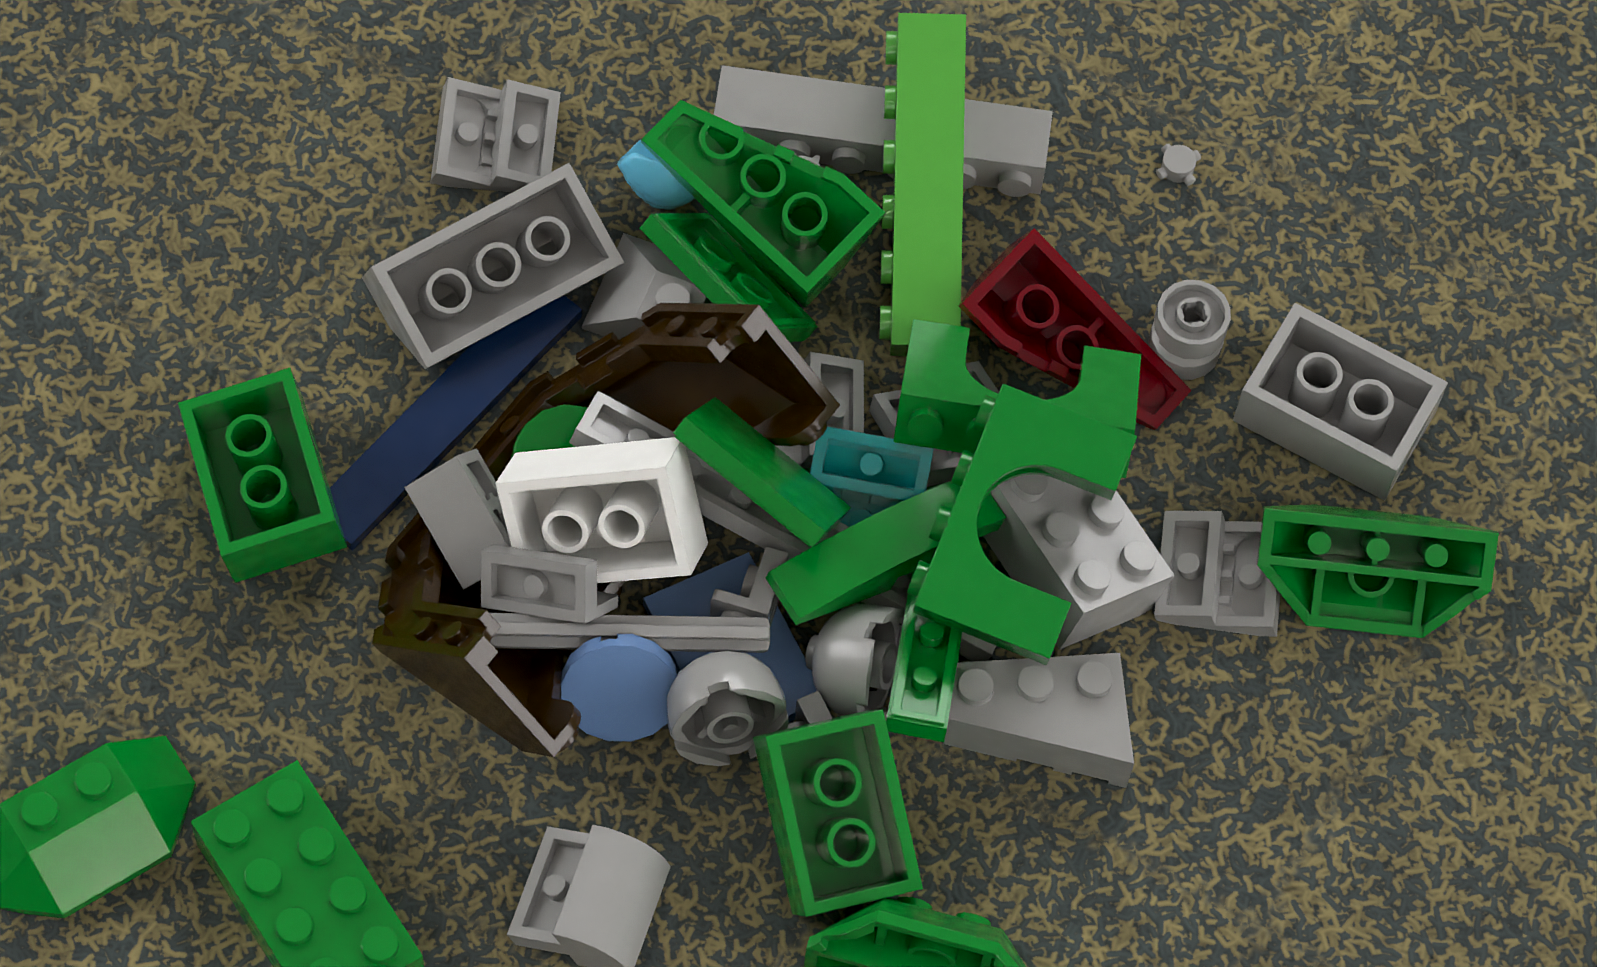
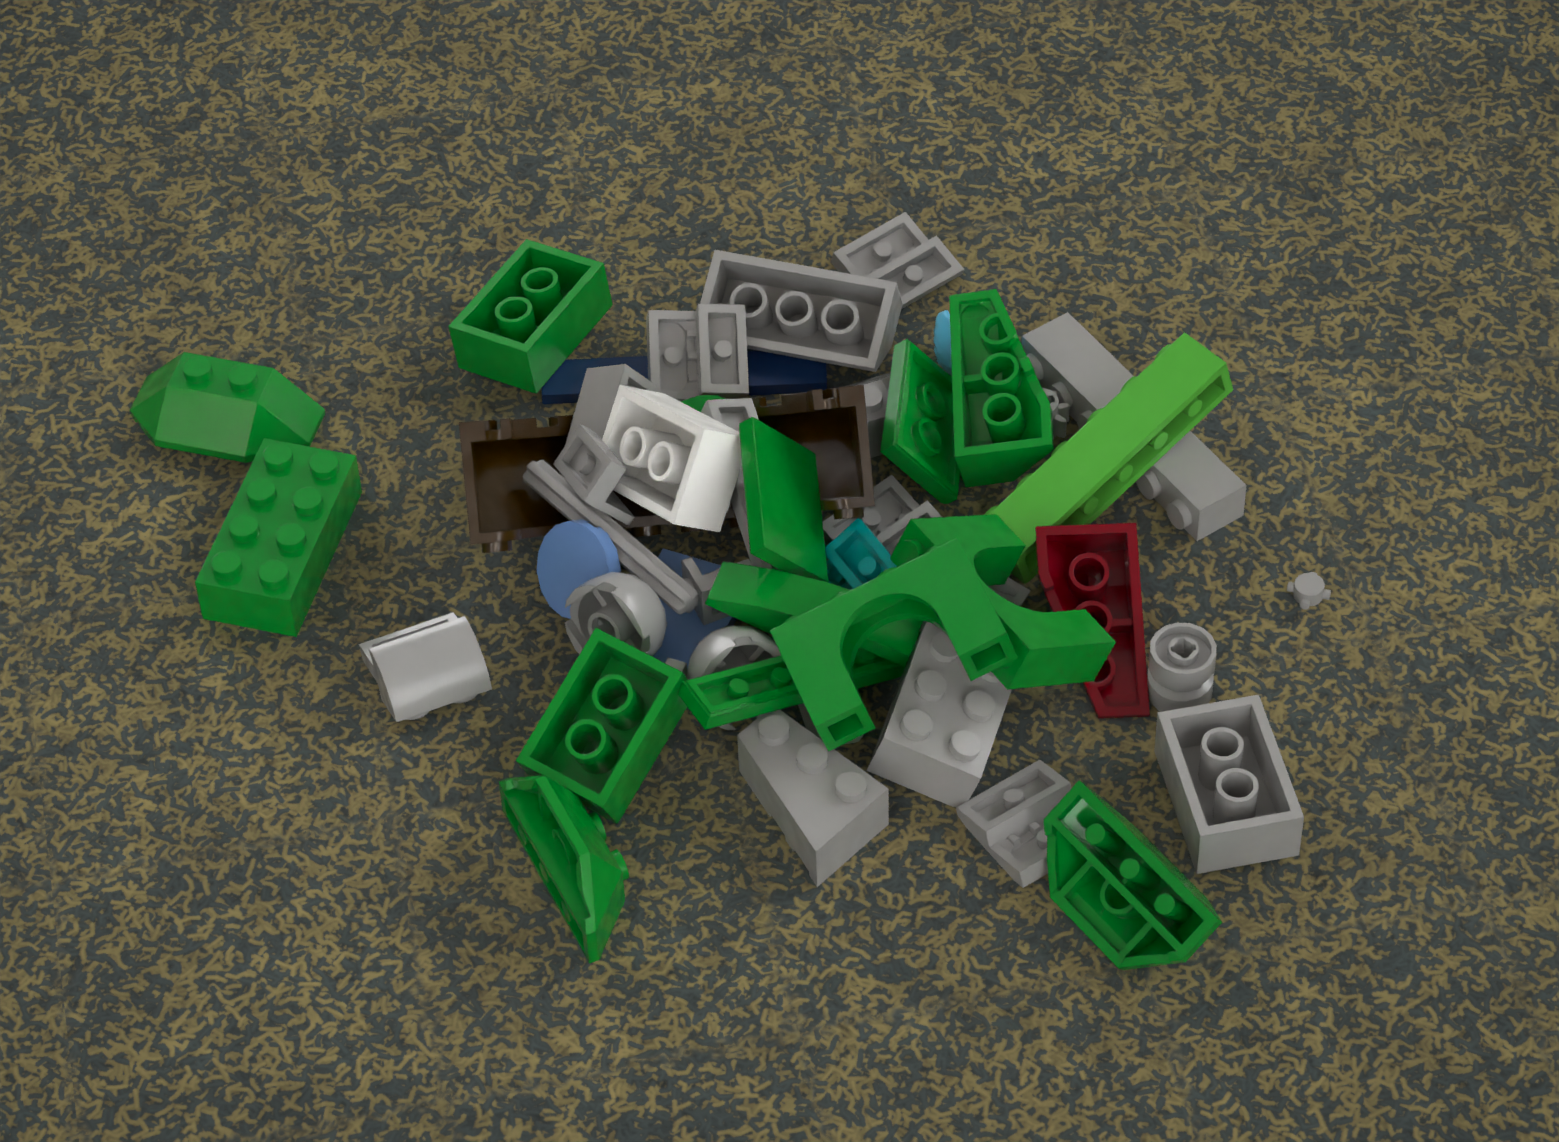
camera: 55 degrees right, 15 degrees down
(458, 382) = (698, 351): none -> light grey slope

